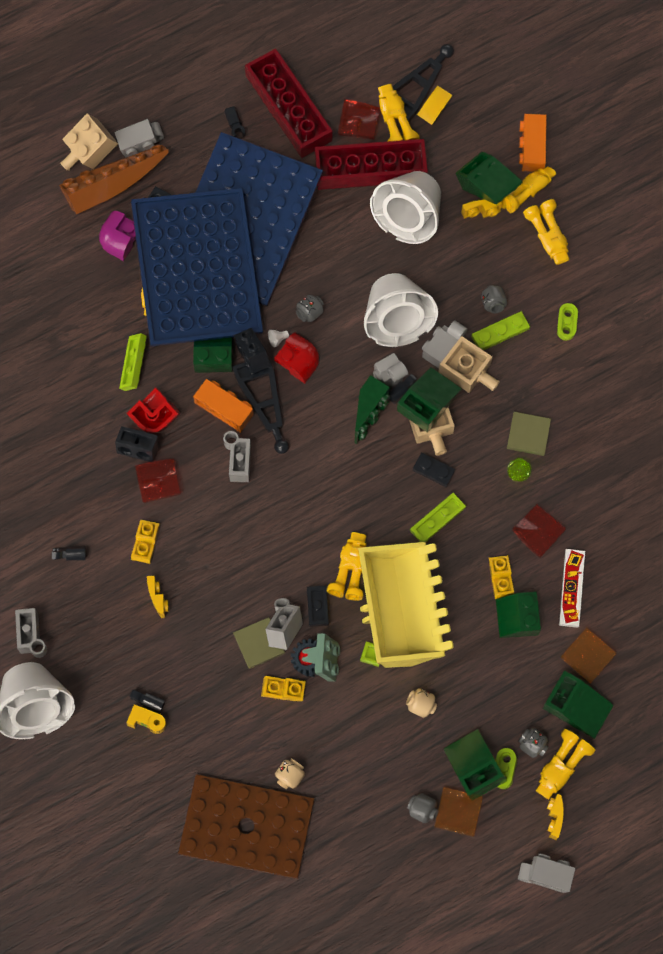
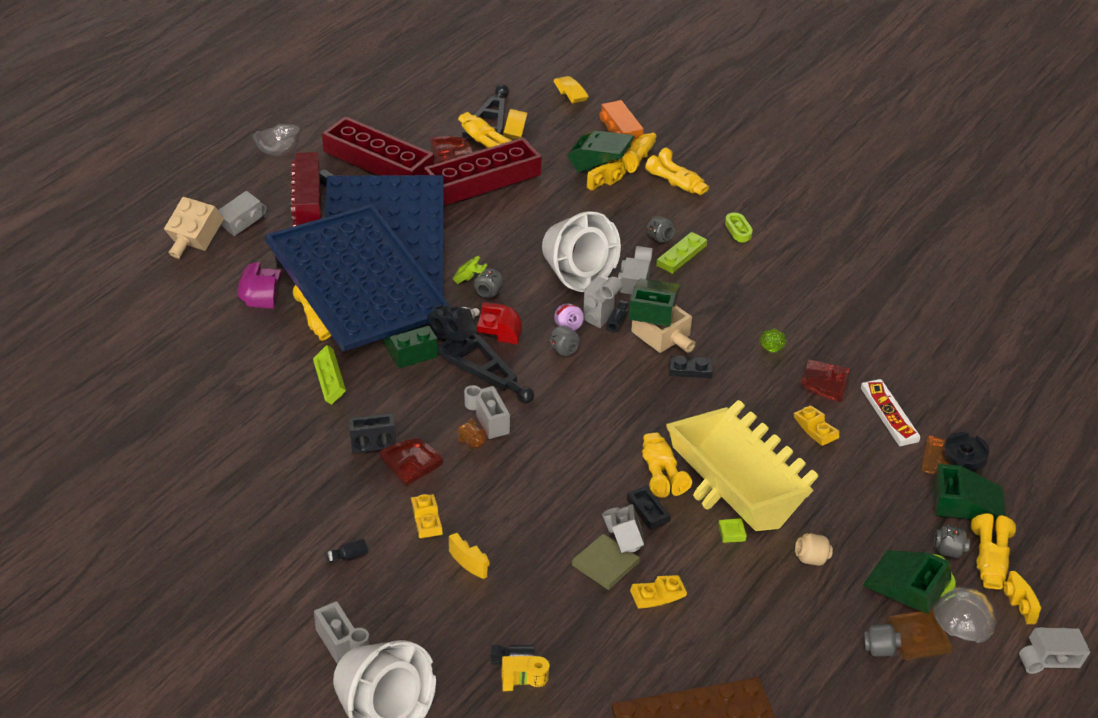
camera: 25 degrees left, 30 degrees down
(109, 180) = (217, 257): dark orange wedge -> none
(153, 412) = (376, 399): red brick -> none
(197, 144) = (305, 188): none -> dark red brick
(205, 51) = (277, 140): none -> clear cylinder
(216, 474) = (471, 434): none -> clear orange brick
(223, 405) = (443, 378): orange brick -> none
(289, 774) = (718, 661): tan head -> none
(298, 285) = (468, 270): none -> lime plate
(317, 657) = (678, 546): sand green plate -> none
(340, 401) = (564, 340): none -> dark grey head
(356, 376) = (563, 314): none -> lavender head
(372, 399) = (597, 330): dark green slope -> none
(408, 206) = (536, 202): white cone -> none
(438, 518) = (724, 393): lime plate -> none
(467, 366) = (676, 271): tan brick -> none
(502, 813) = (966, 614): none -> clear cylinder
(512, 73) = (572, 88): none -> yellow slope
(518, 615) = (857, 446): dark green slope -> none
(528, 433) = (761, 313): olive tile -> none
(610, 653) = (961, 441): none -> black plate

